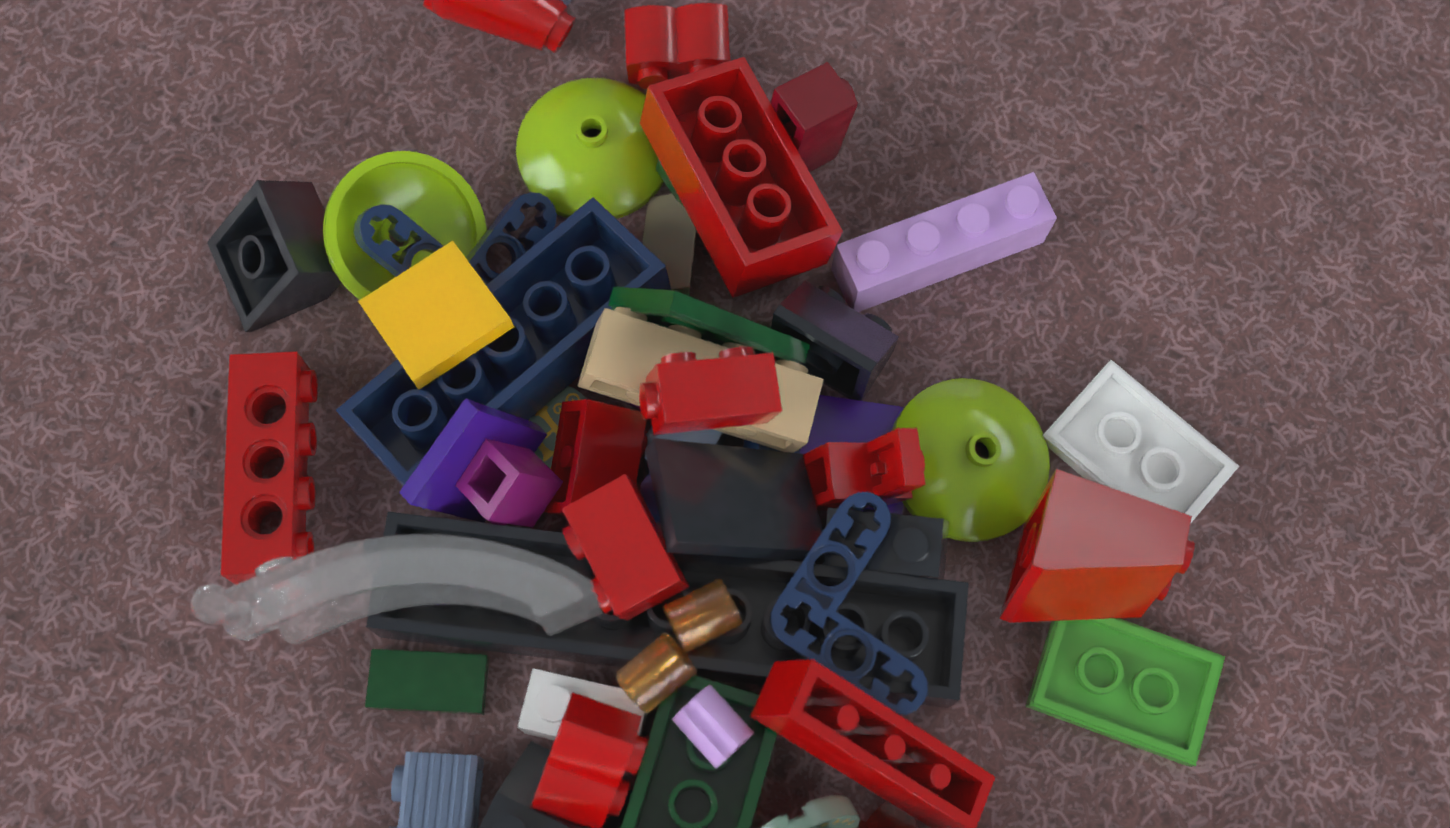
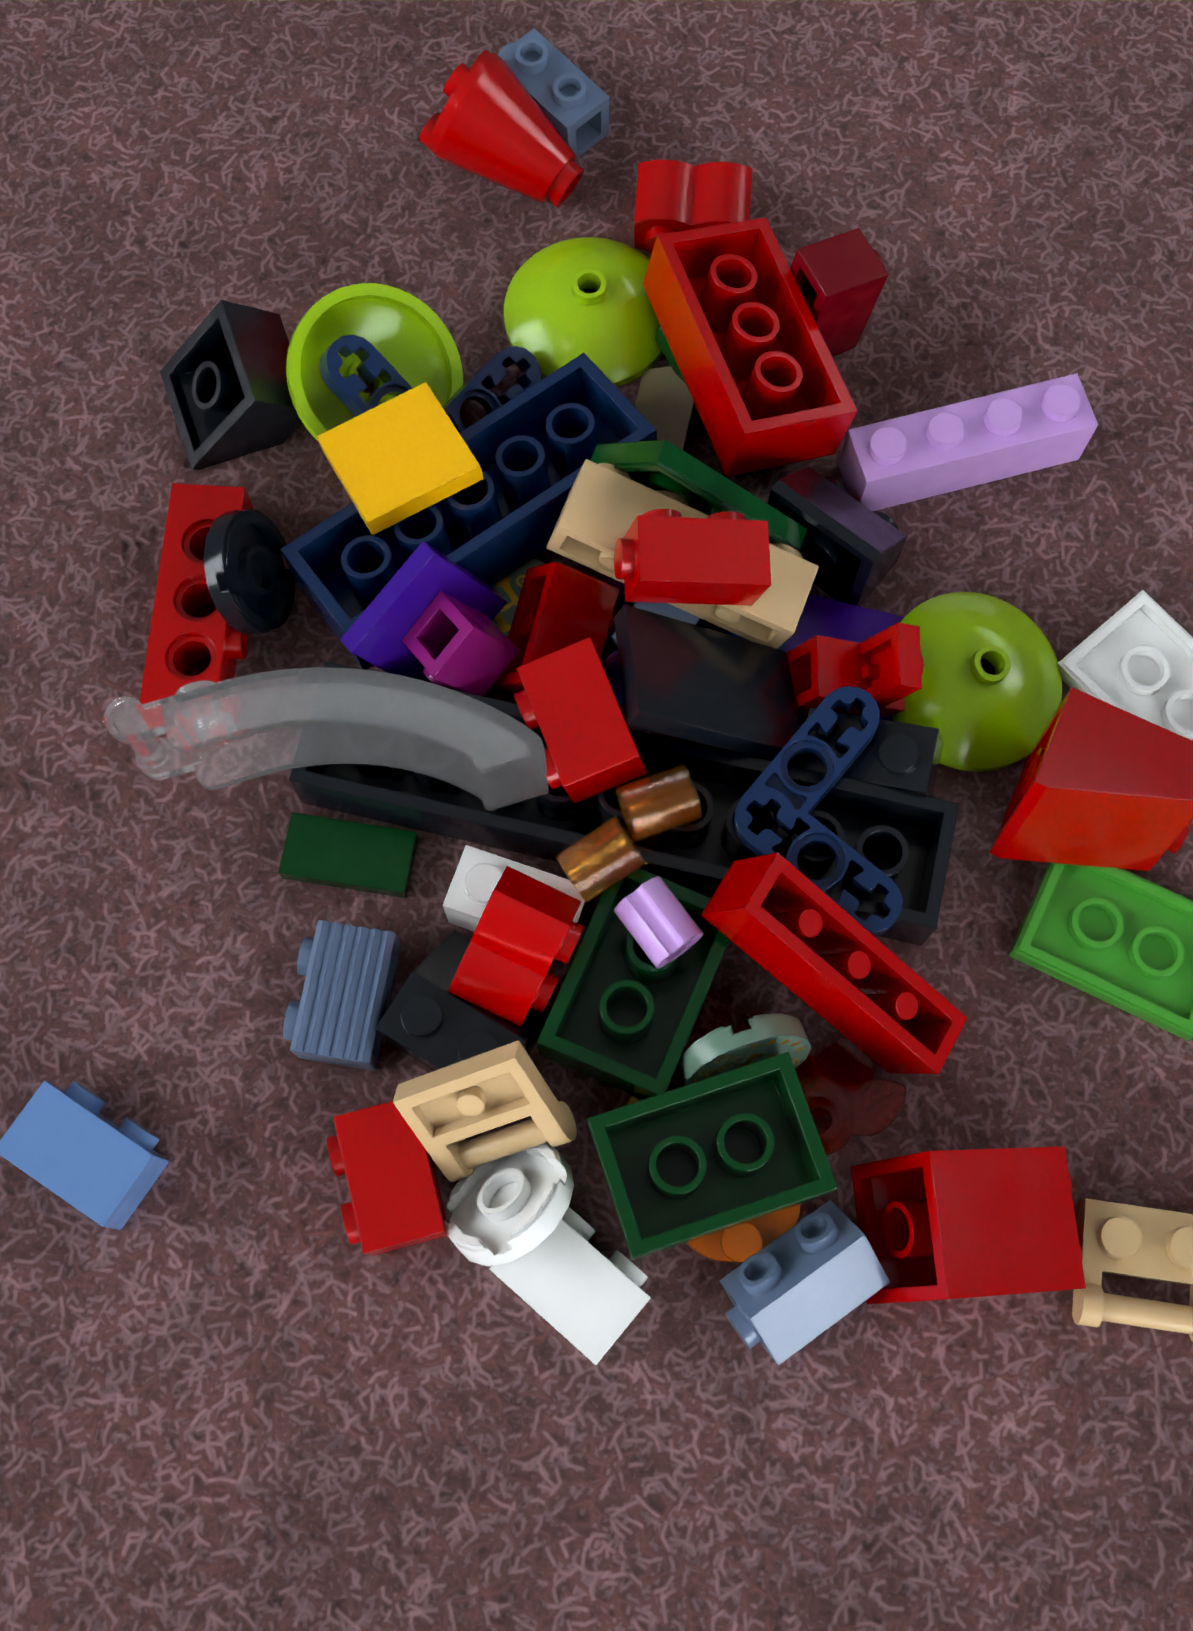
camera: 10 degrees right, 0 degrees up
(308, 431) = (248, 571): none -> black tile

